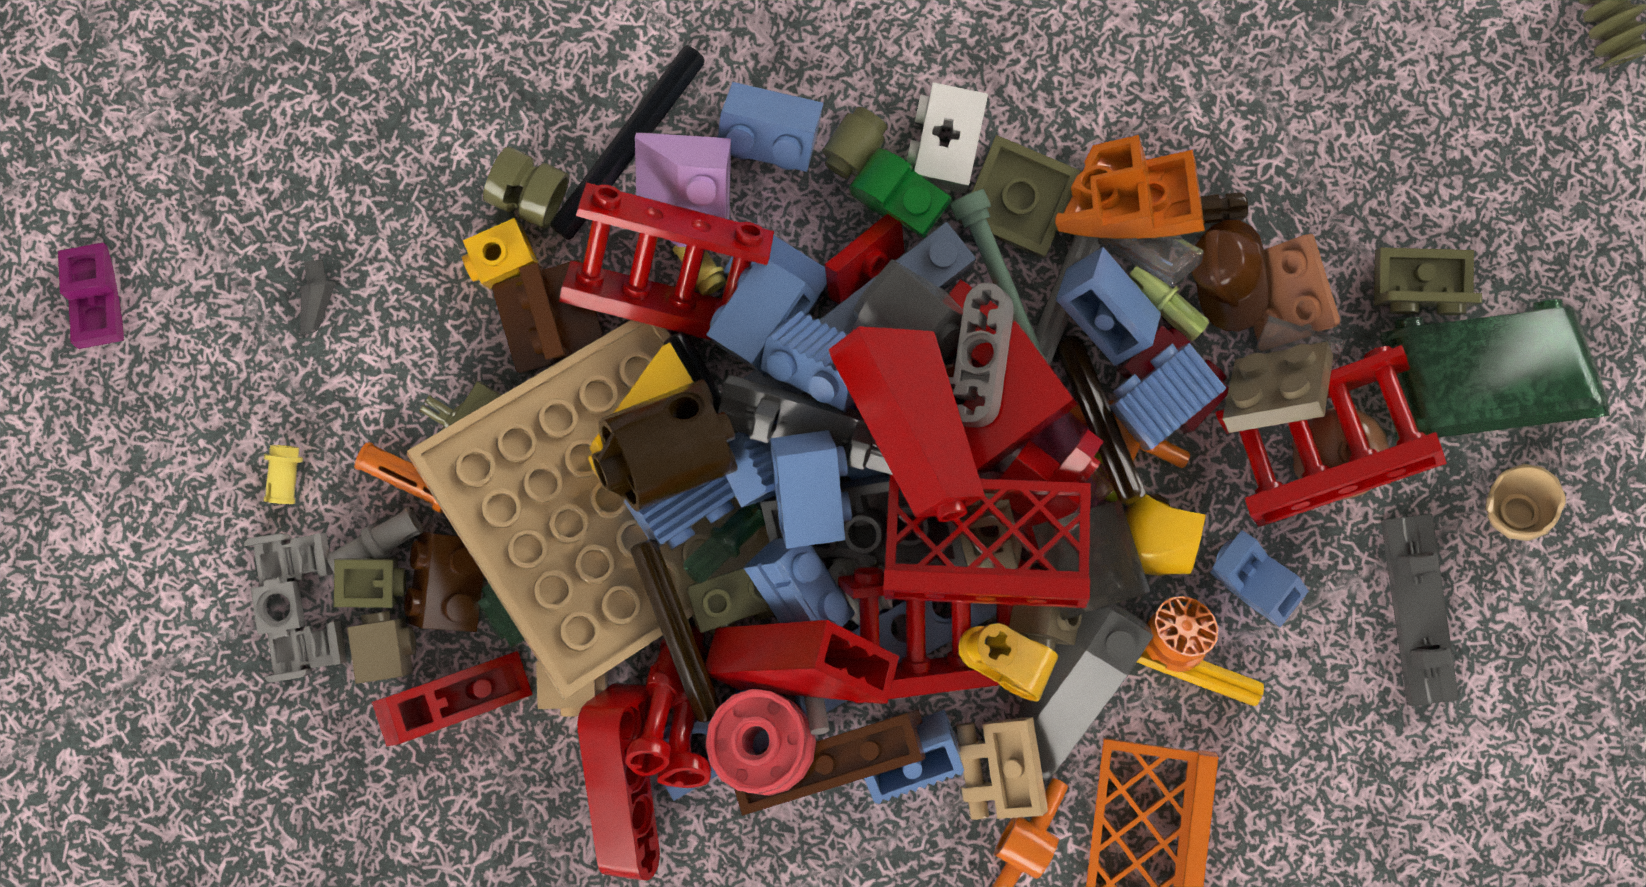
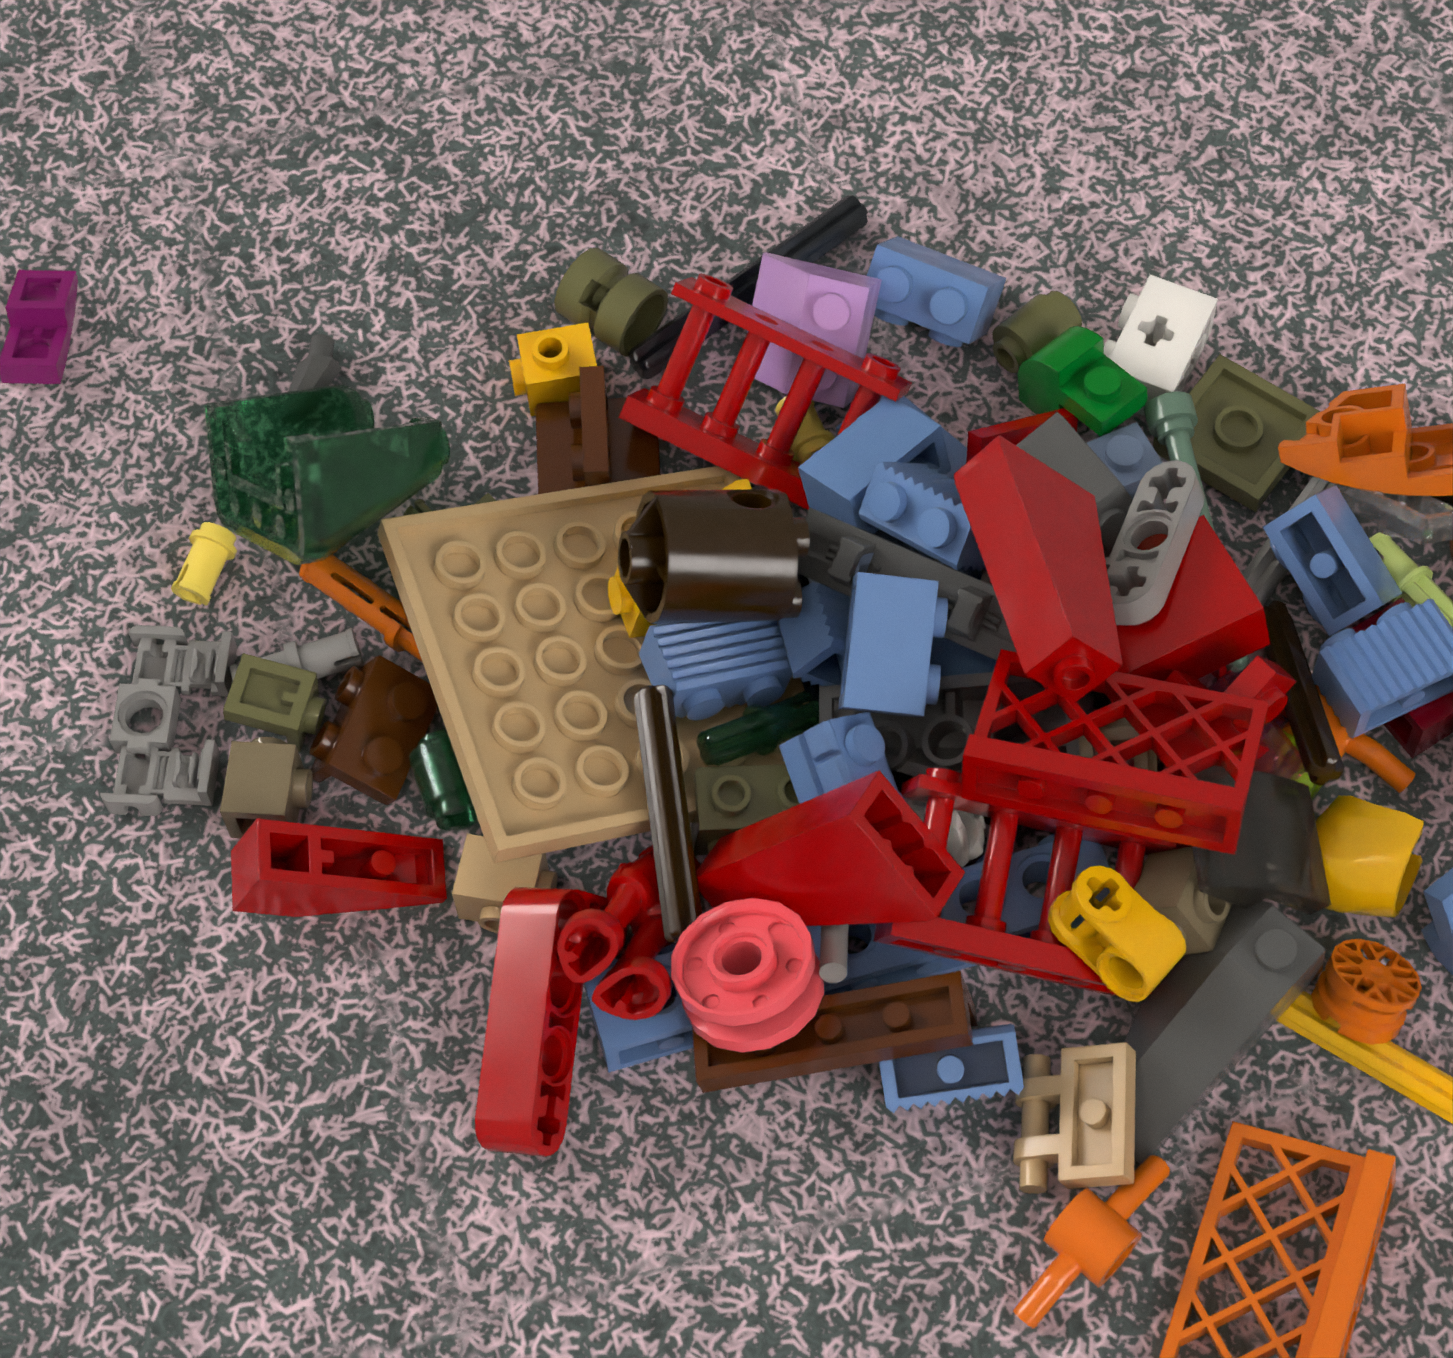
camera: 15 degrees right, 25 degrees down
(344, 399) = (312, 469): none -> clear green windscreen

